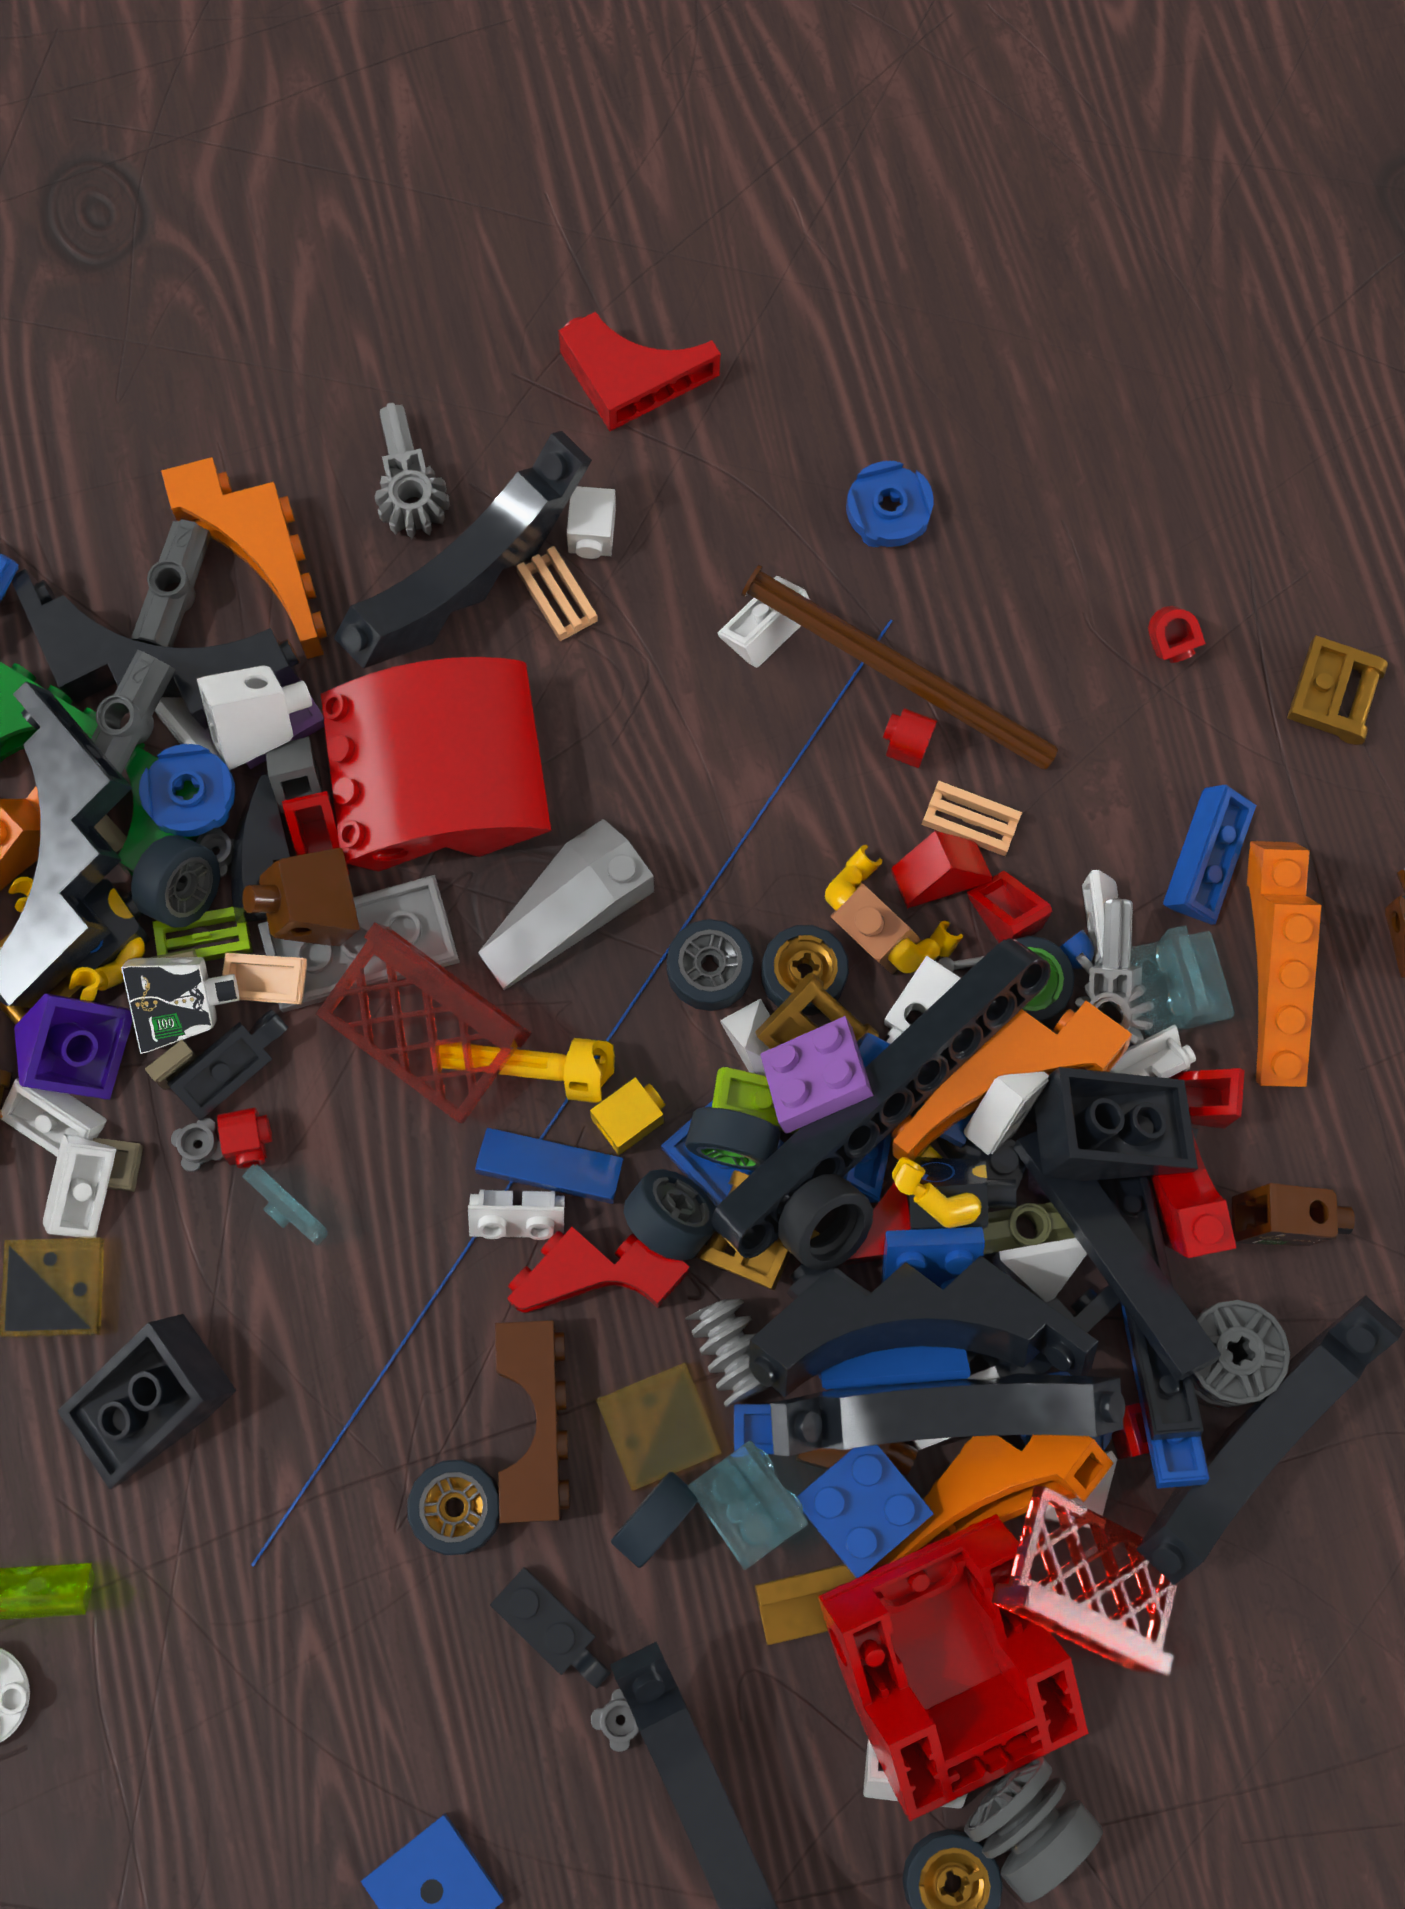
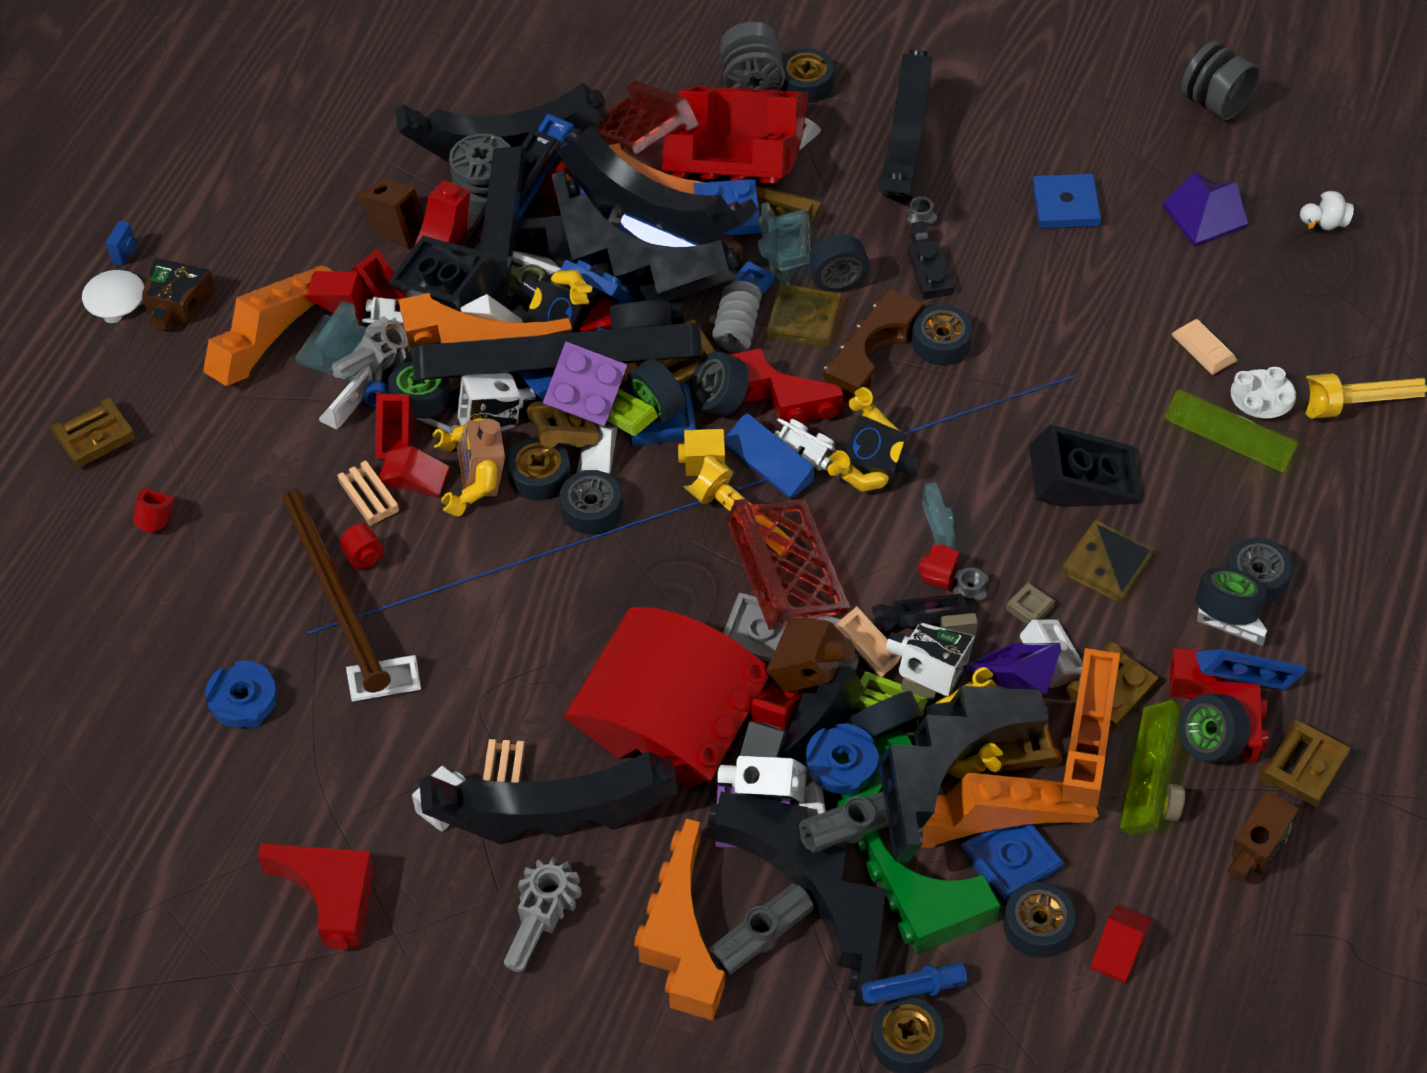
camera: 140 degrees left, 20 degrees down
(78, 1187) = (1061, 597): white slope -> none
(101, 1737) = (1204, 347): none -> light nougat tile
(420, 1244) = (873, 450): none -> torso
(574, 896) = (641, 578): light grey wedge -> none
(1210, 853) = (253, 400): blue slope -> none
(1234, 1035) = (332, 287): none -> red slope

